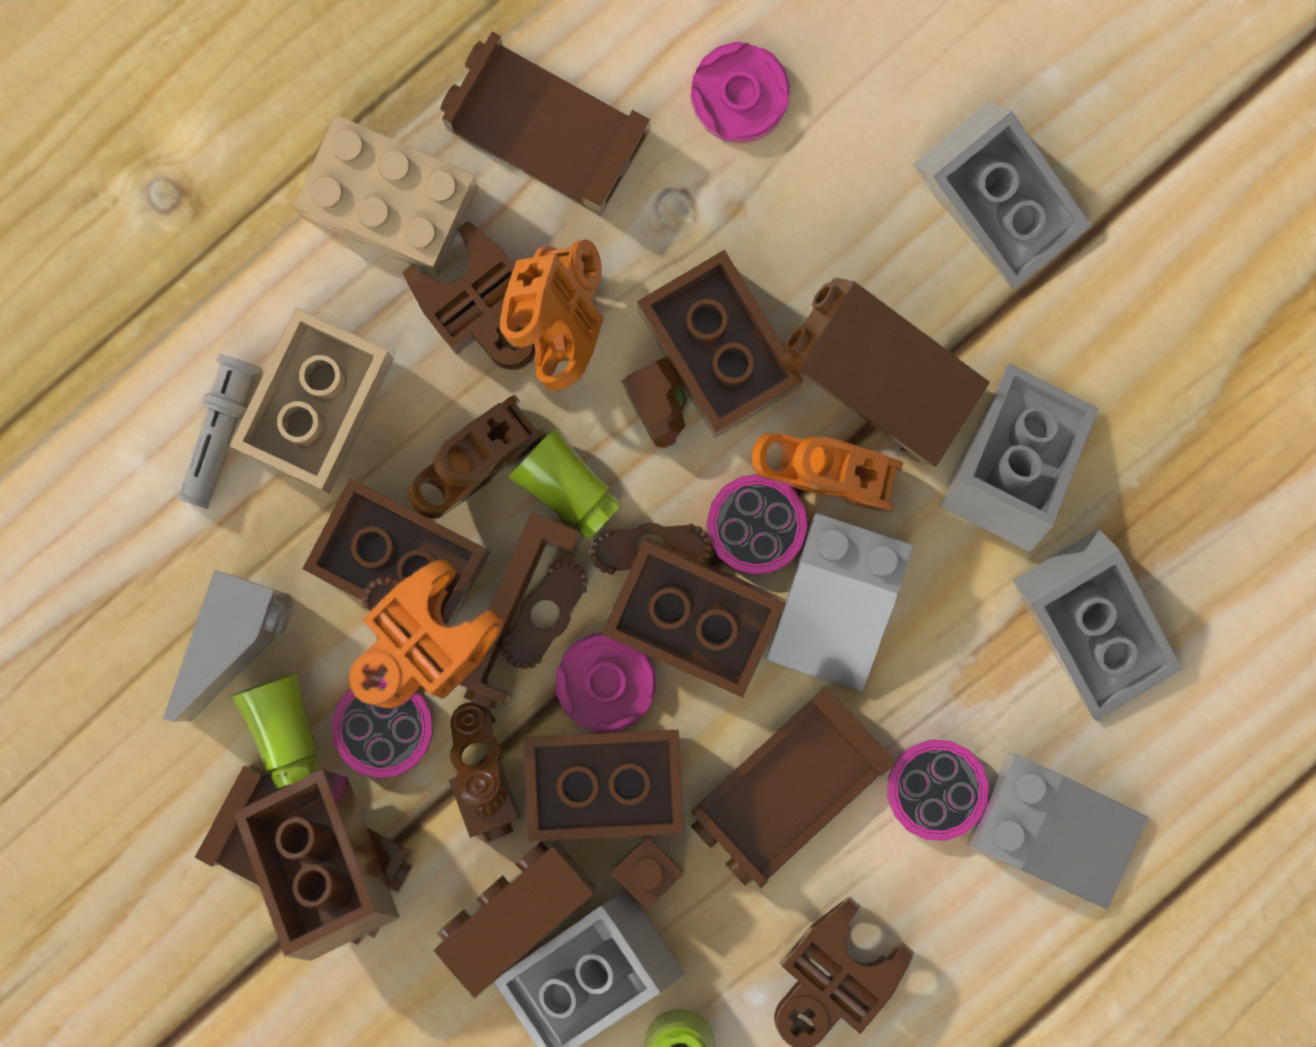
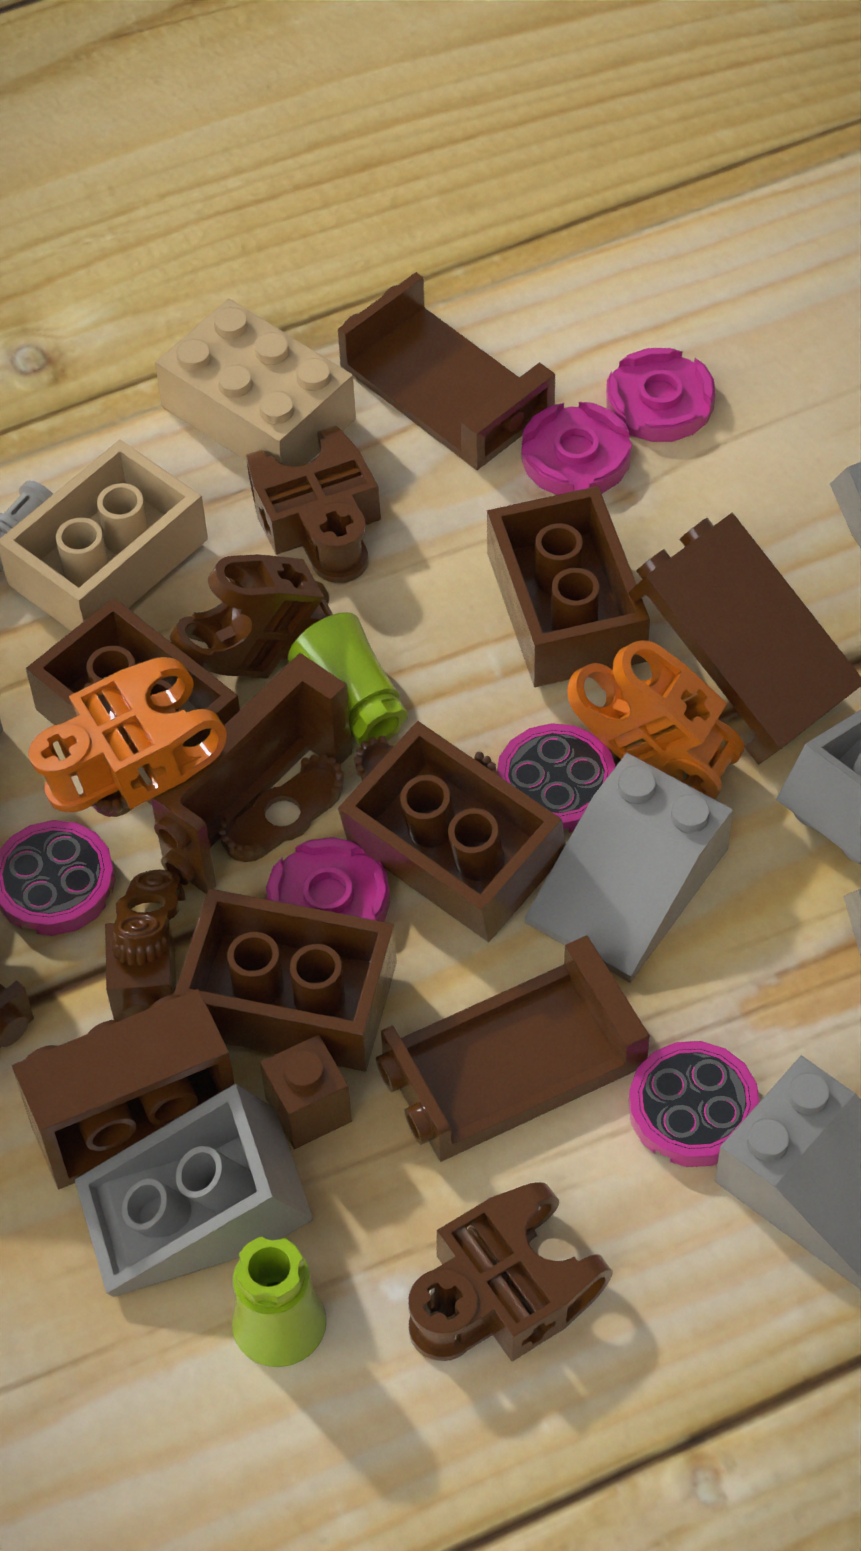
camera: 15 degrees right, 30 degrees down
(555, 306) = (397, 503): orange piece -> none
(658, 401) = (480, 627): reddish brown rock -> none
(682, 174) = (576, 448): none -> dark pink tile

